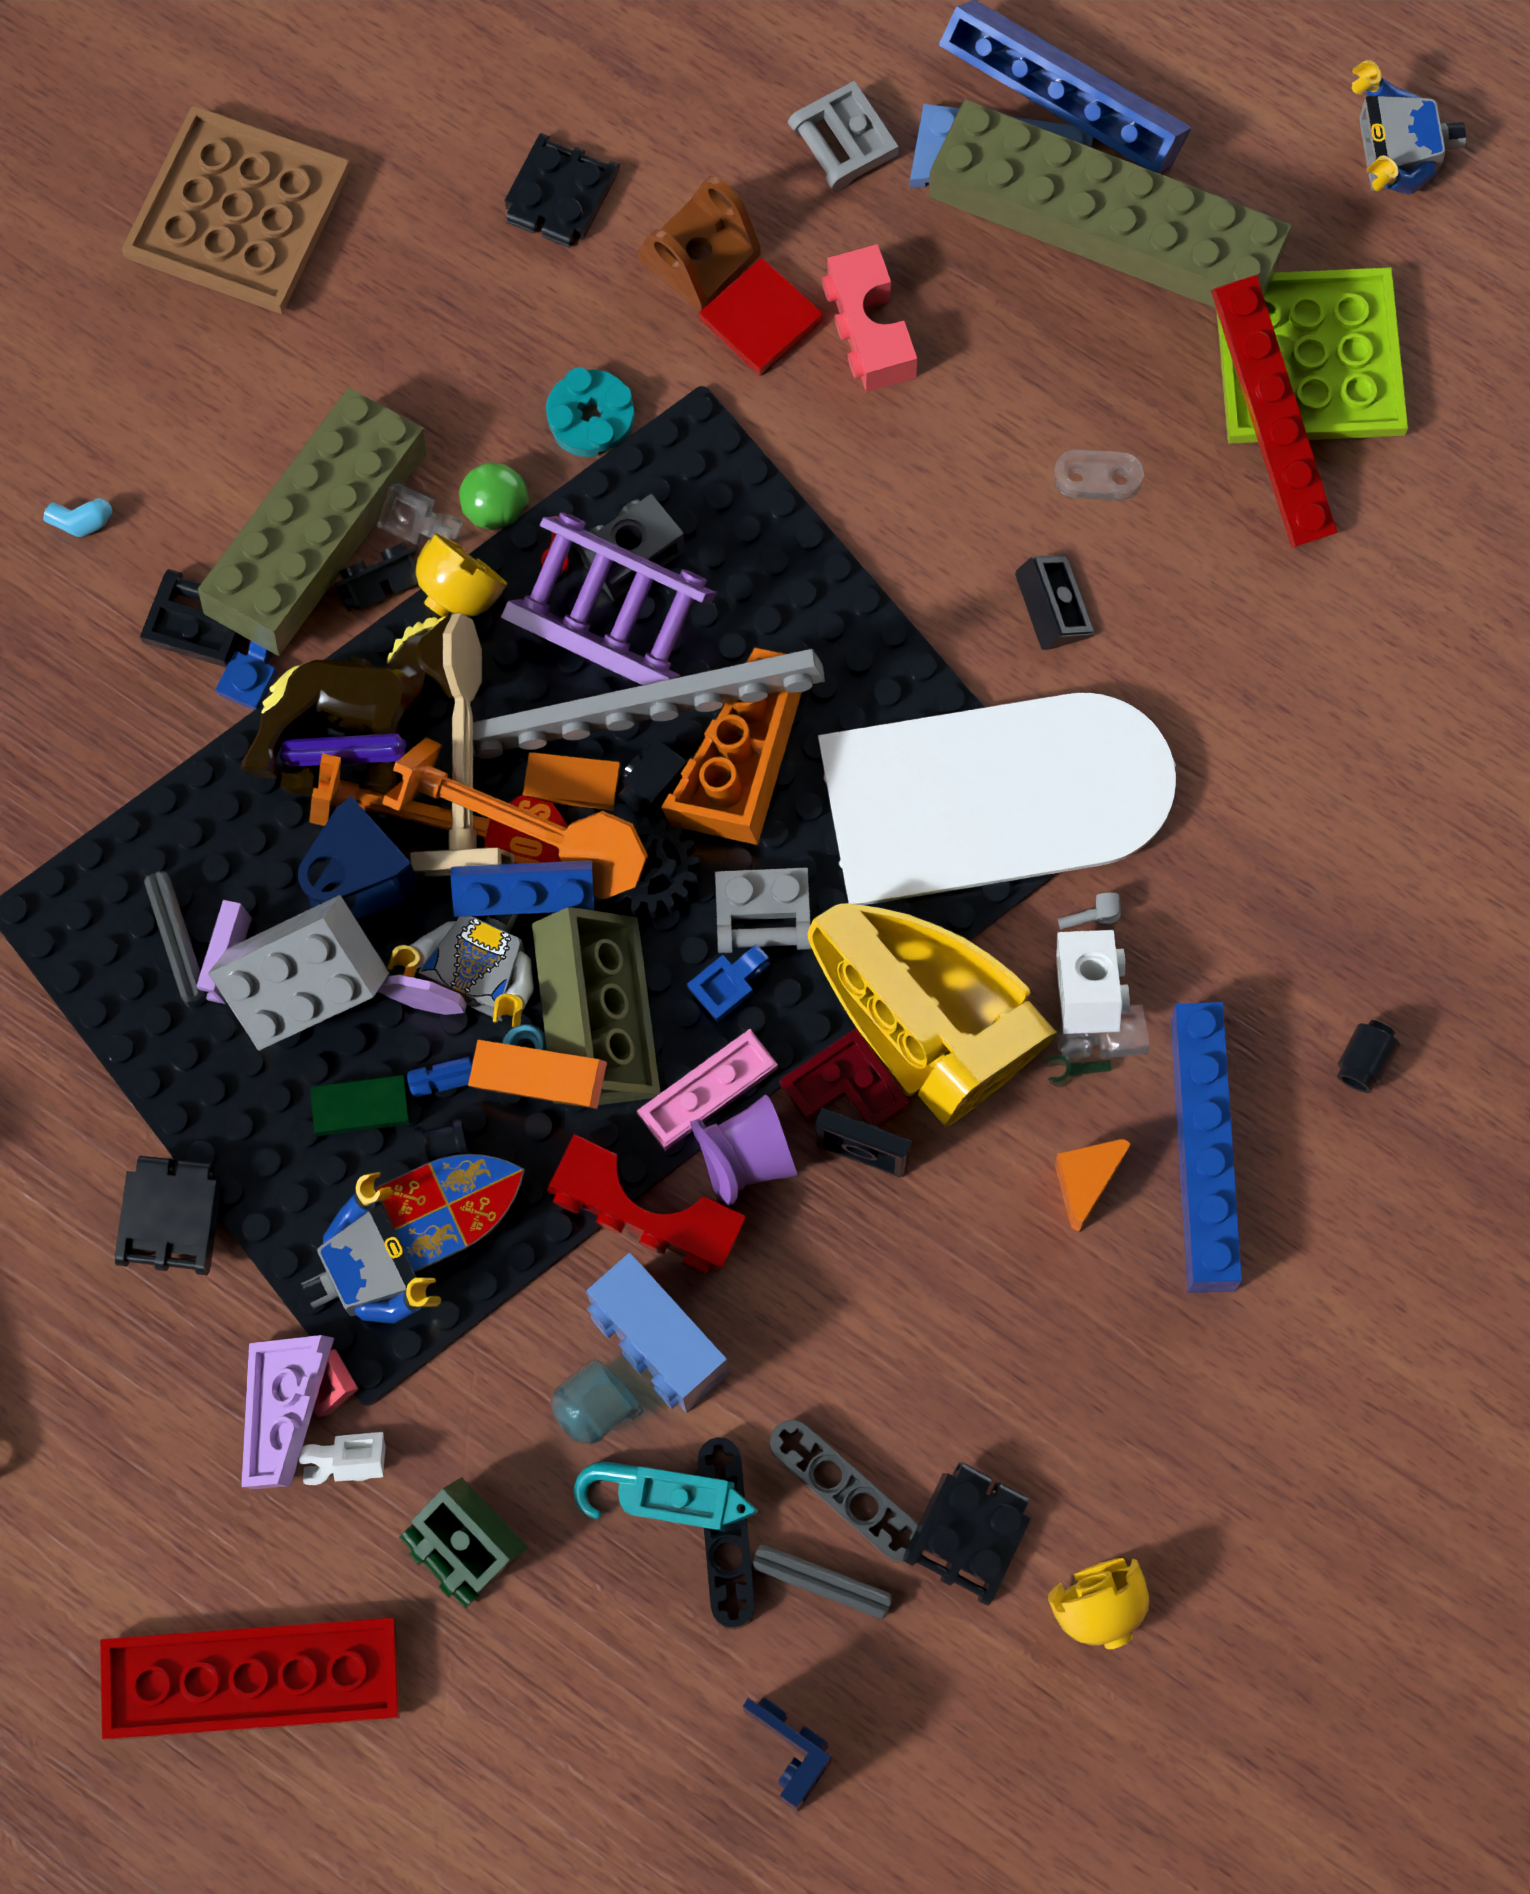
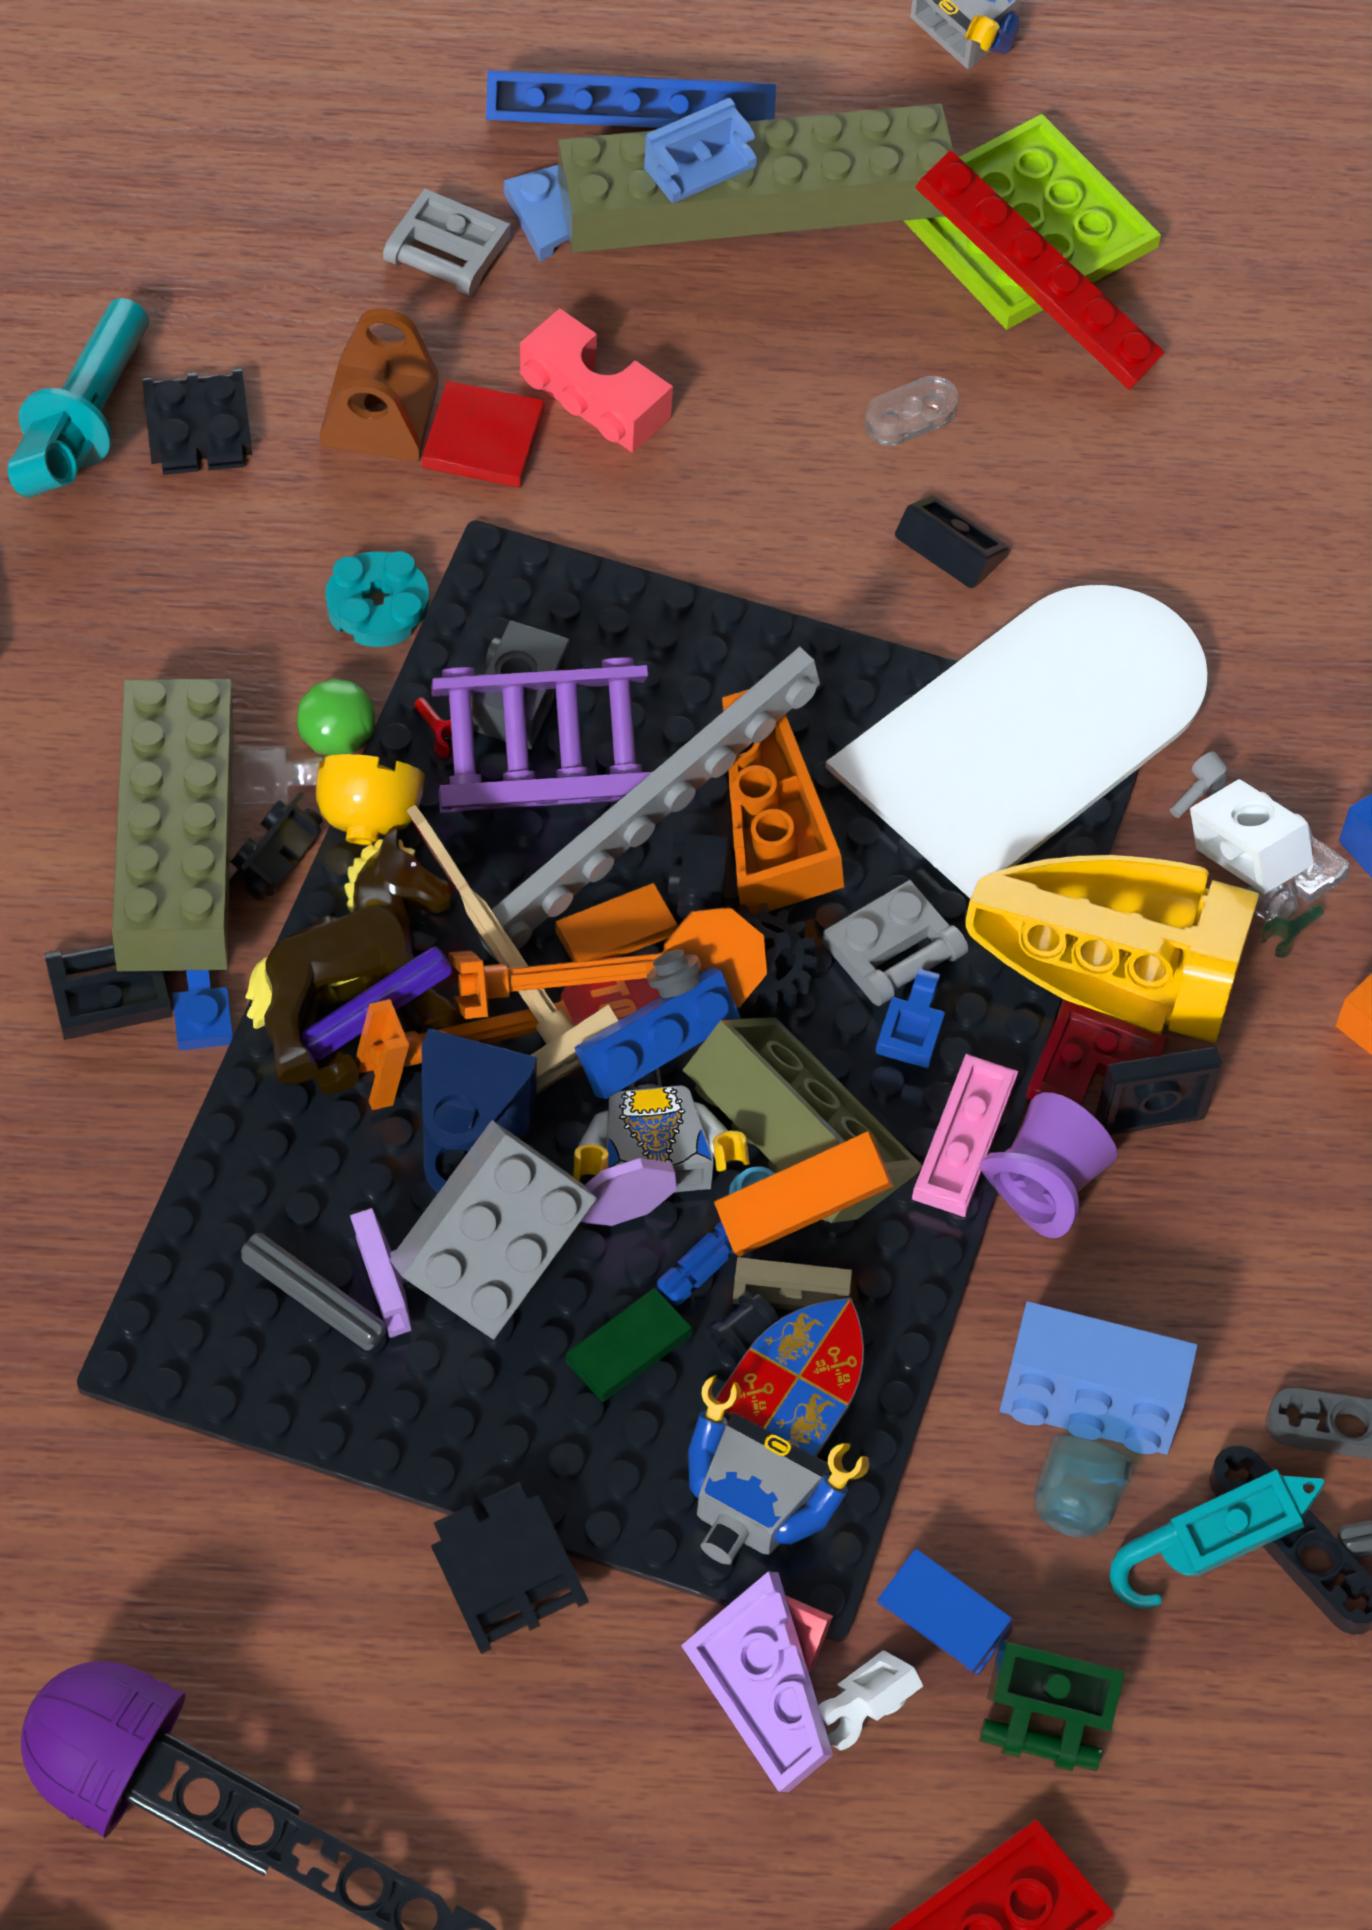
camera: 40 degrees left, 15 degrees down
(439, 1433) = (946, 1612): none -> blue hinge
(446, 150) = (66, 424): none -> teal piece
(496, 1132) = (790, 1284): none -> dark tan tile
(557, 853) = (674, 973): none -> dark grey plate
(590, 1181) = (923, 1276): red arch -> none
(1054, 172) = (699, 151): none -> medium blue hinge

